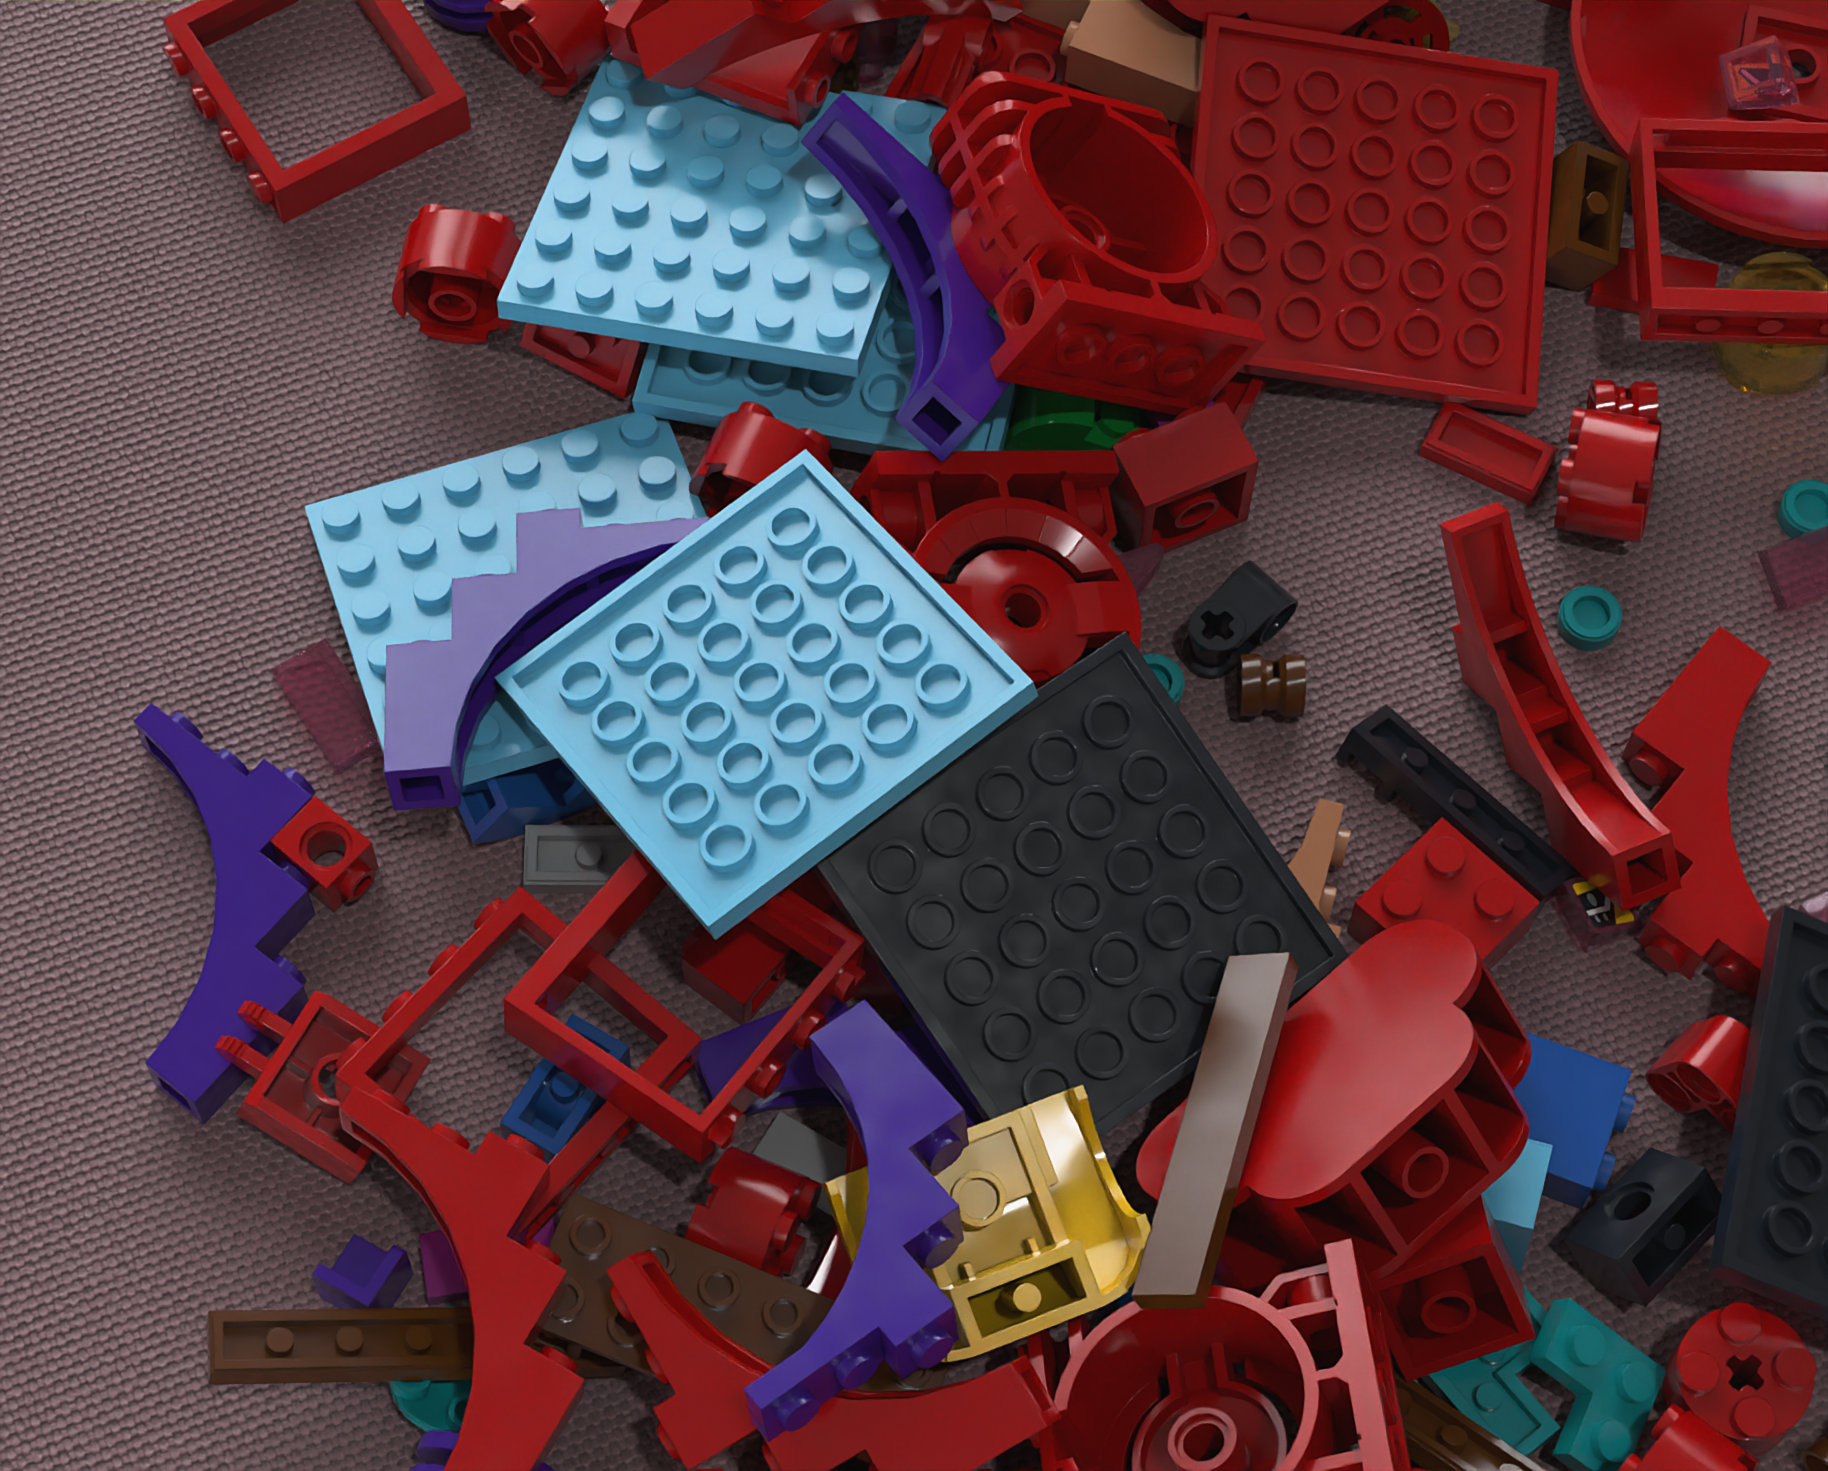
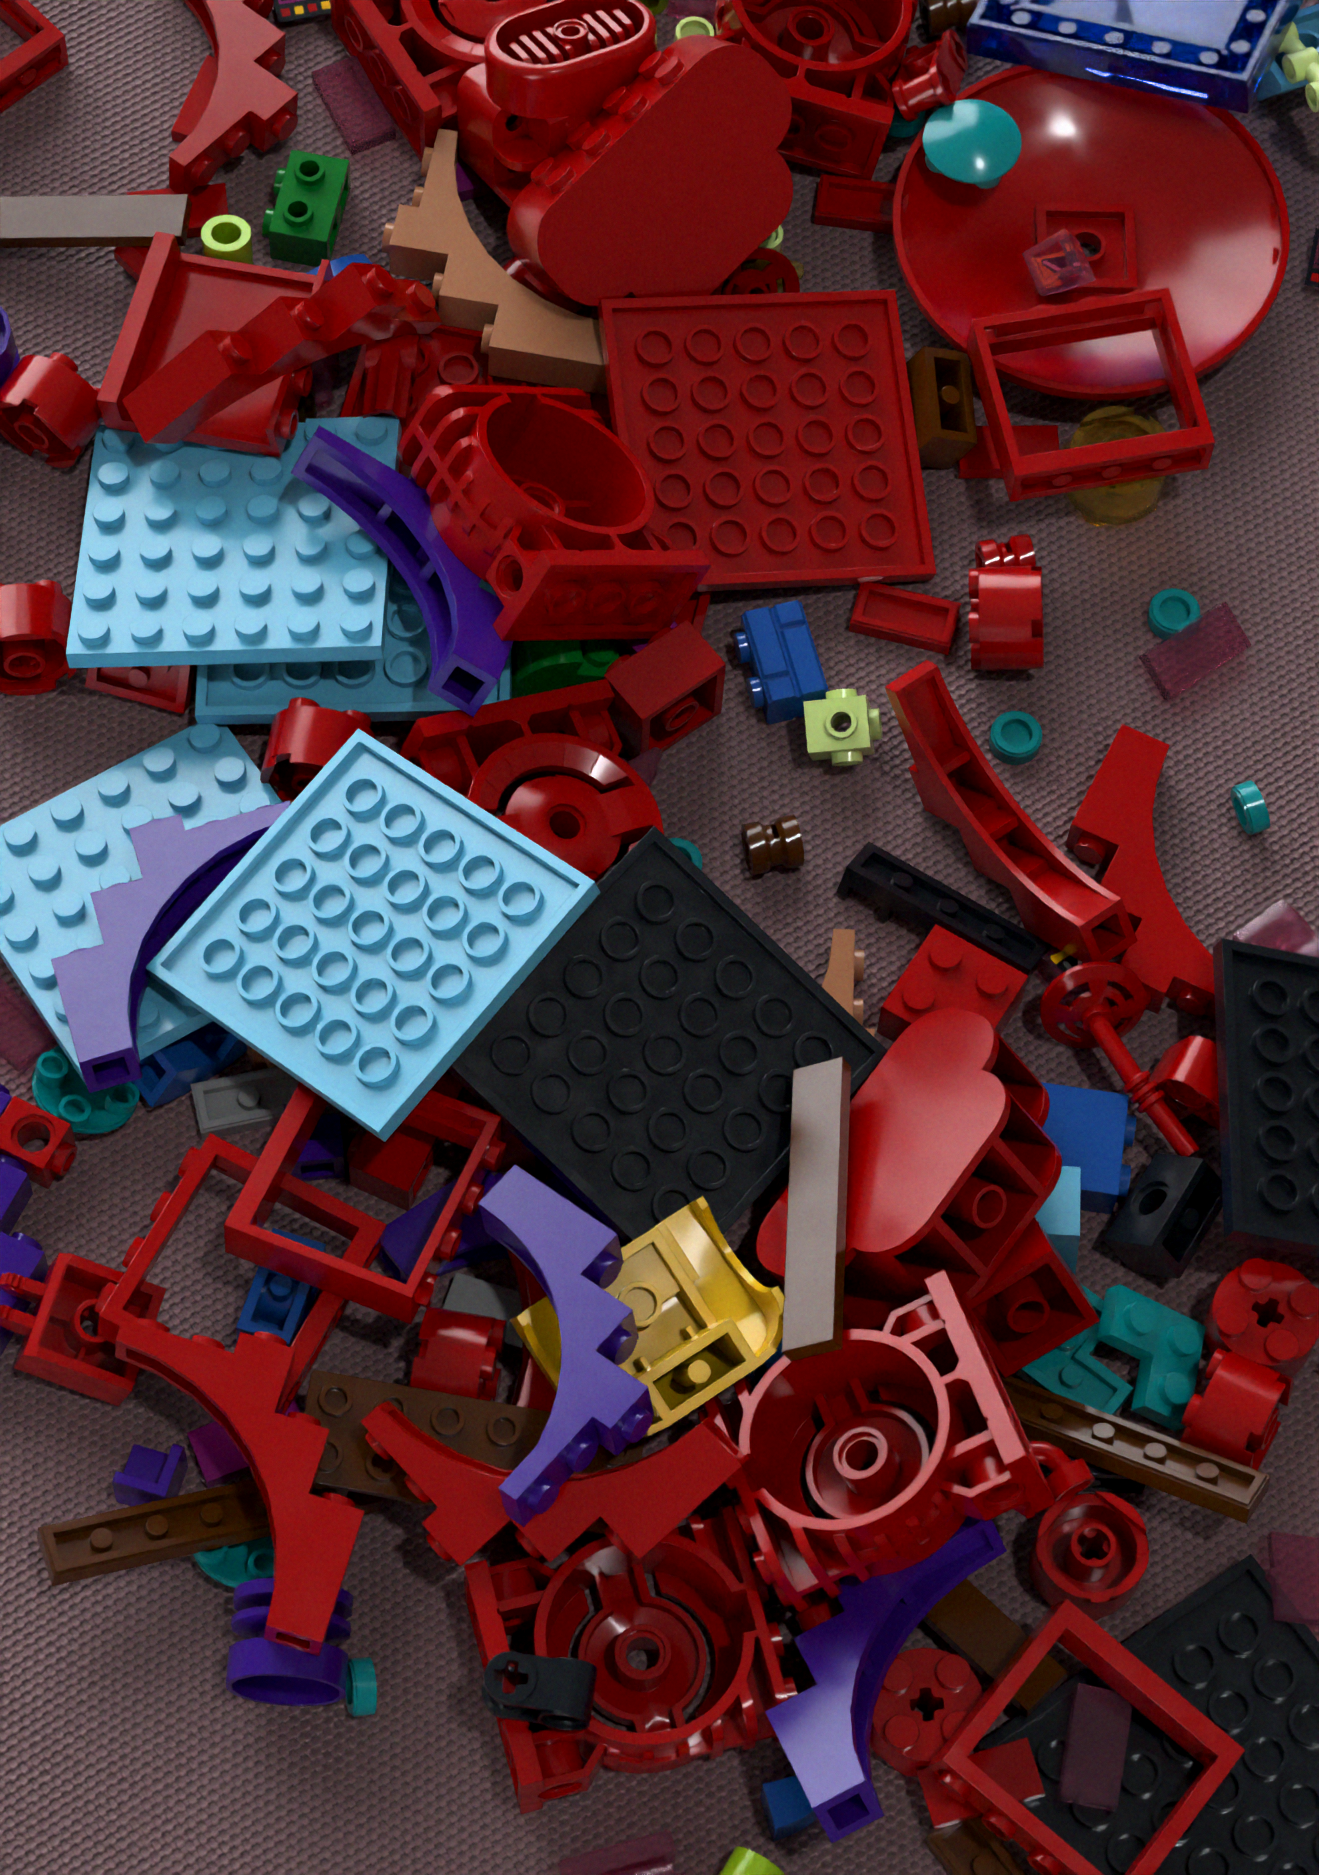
camera: 15 degrees left, 0 degrees up
(399, 833) = (64, 1094): none -> teal dish
(655, 936) = (323, 1152): none -> dark purple panel
(1235, 621) = (732, 798): black piece -> none
(1331, 475) = (780, 660): none -> blue brick
(1367, 548) = (827, 715): none -> yellowish green brick
(1613, 976) = (1099, 1023): none -> red dish

